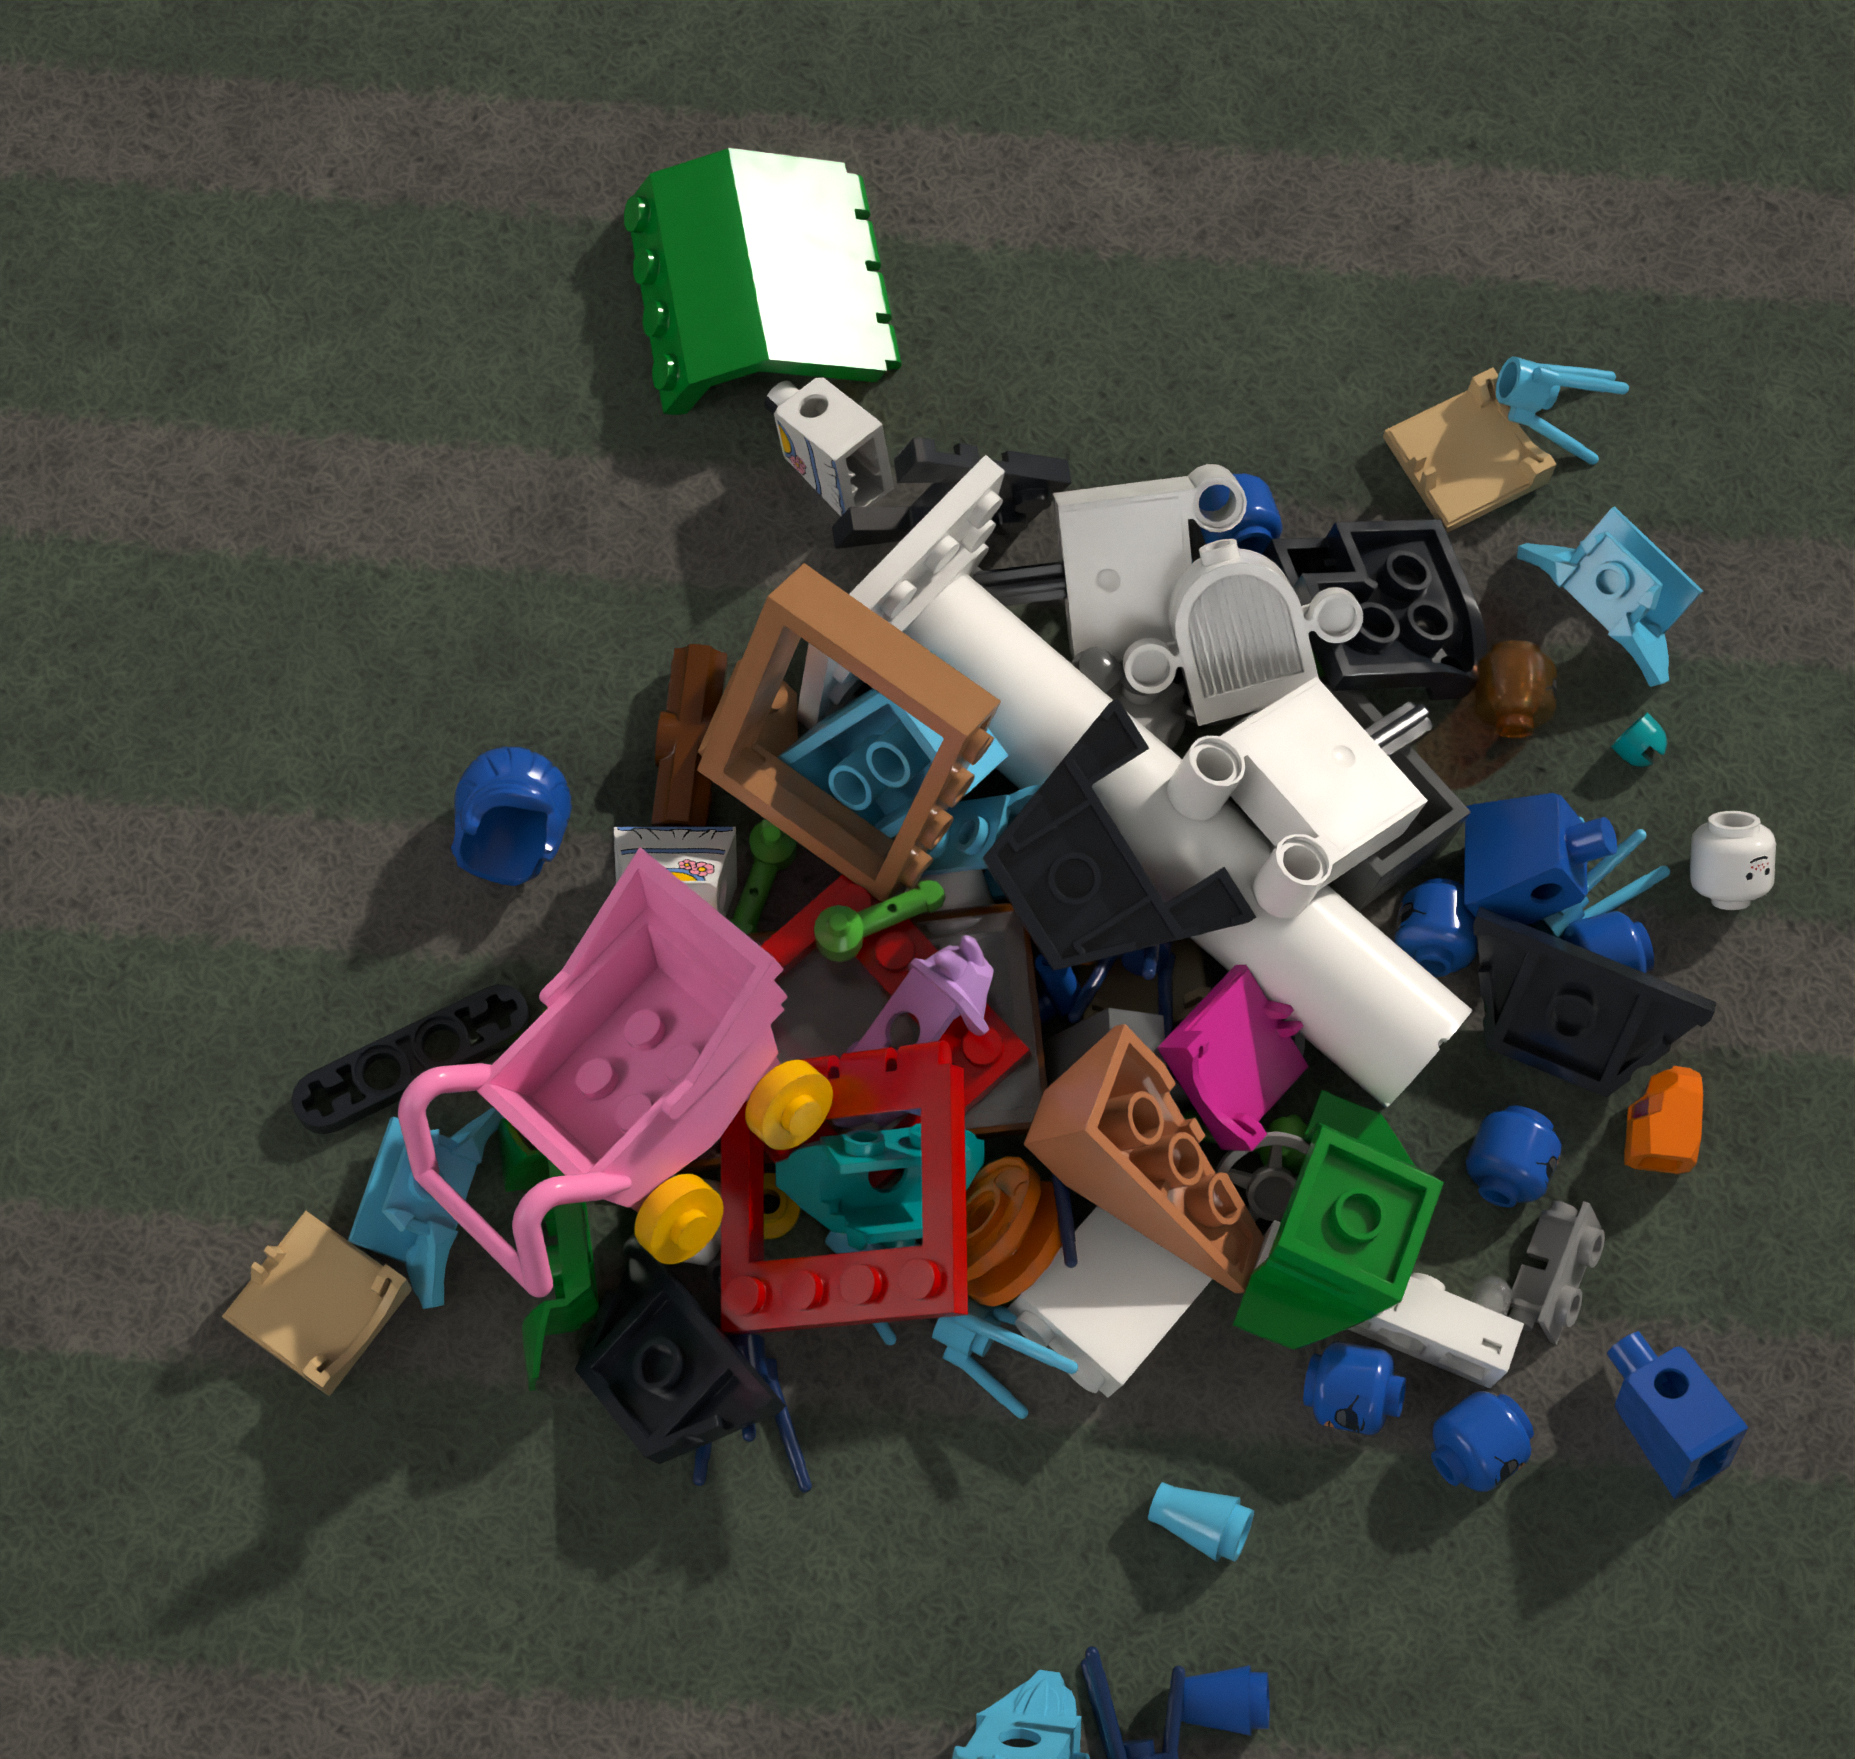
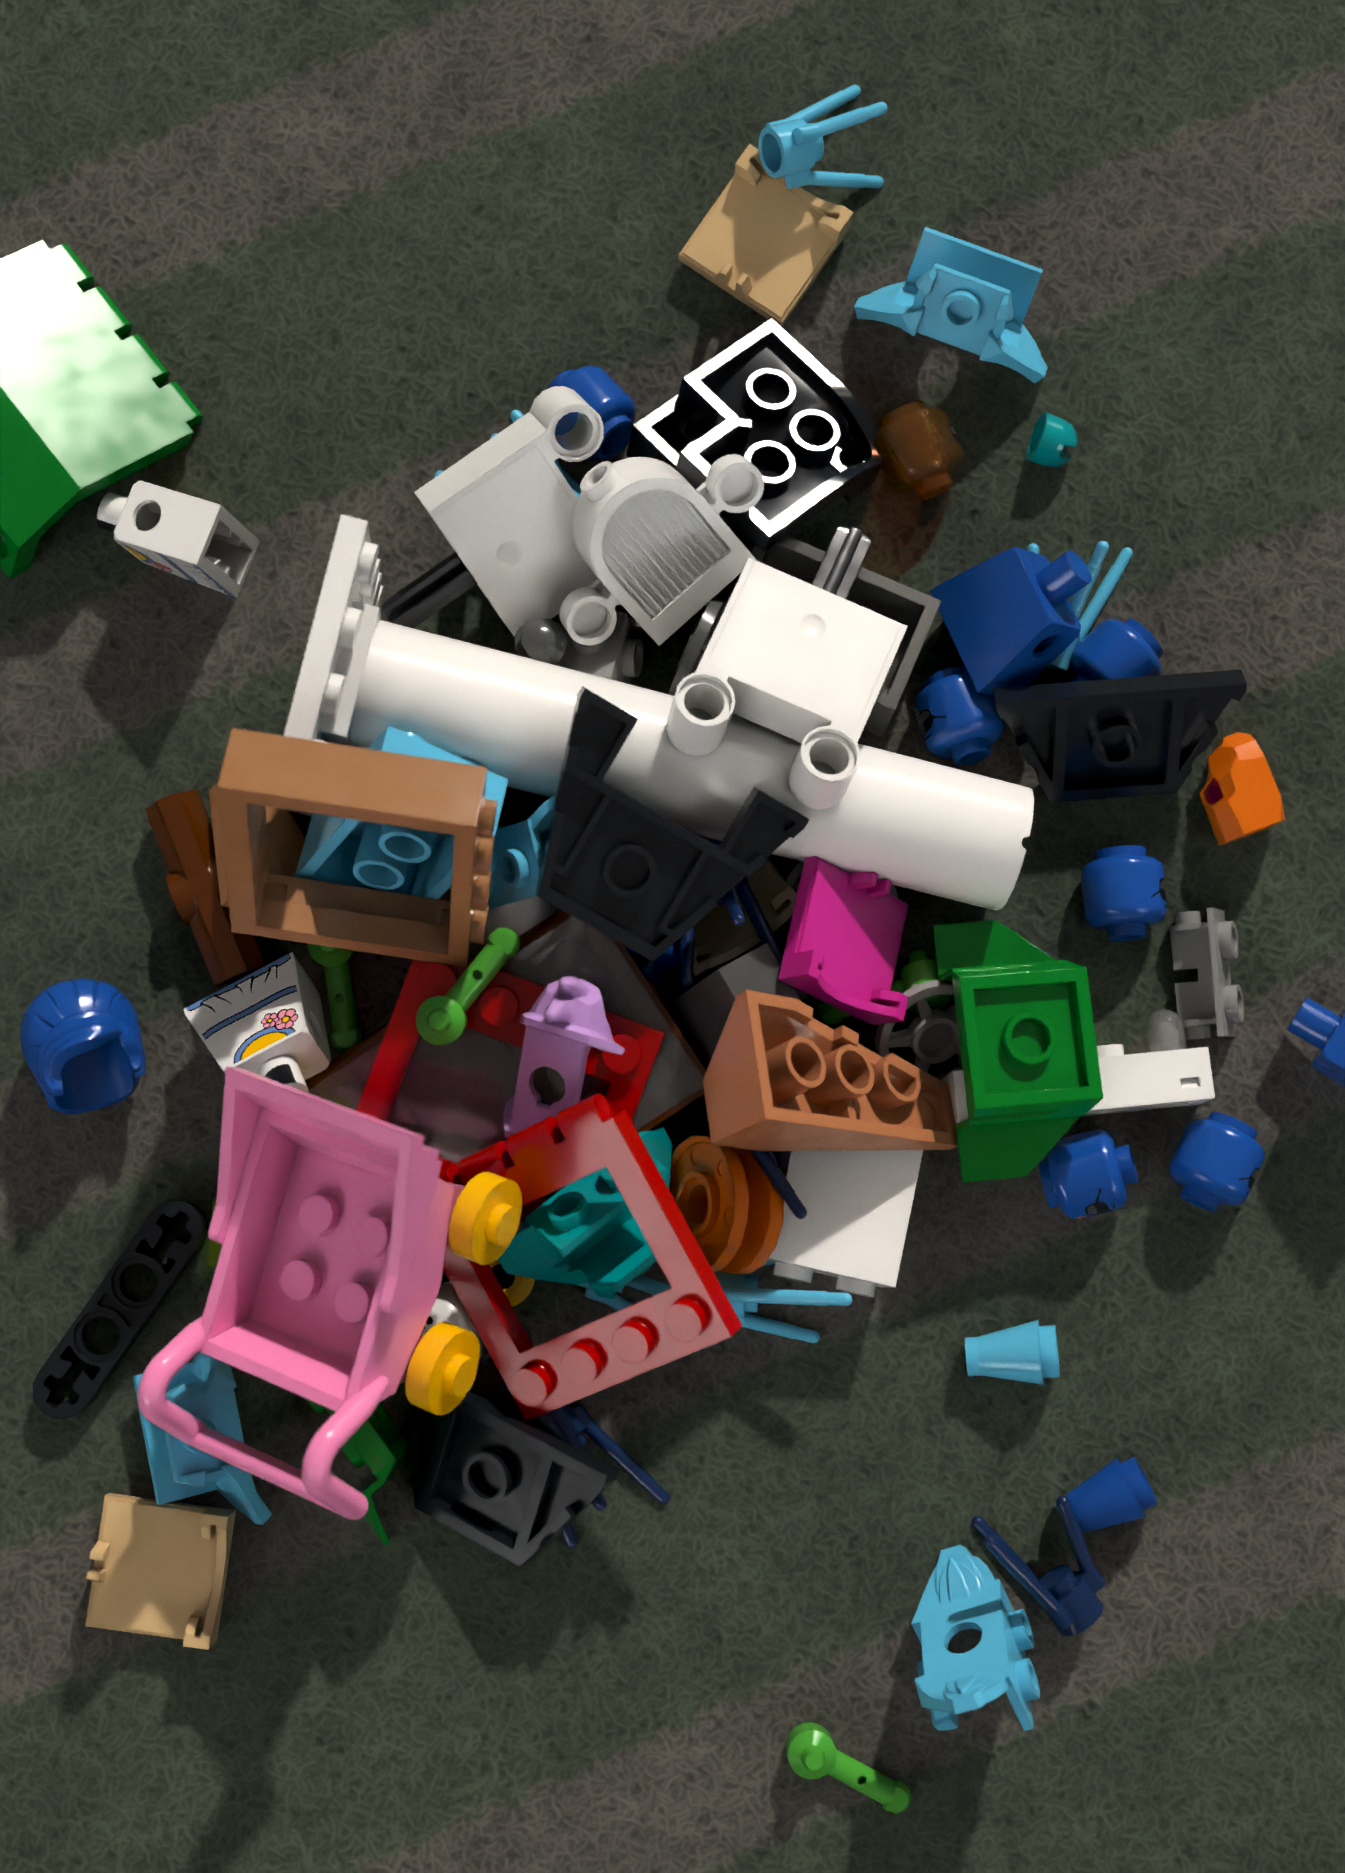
camera: 25 degrees left, 15 degrees up
(1025, 492) = (304, 547): black wing -> none
(1732, 859) = (1187, 517): white head -> none

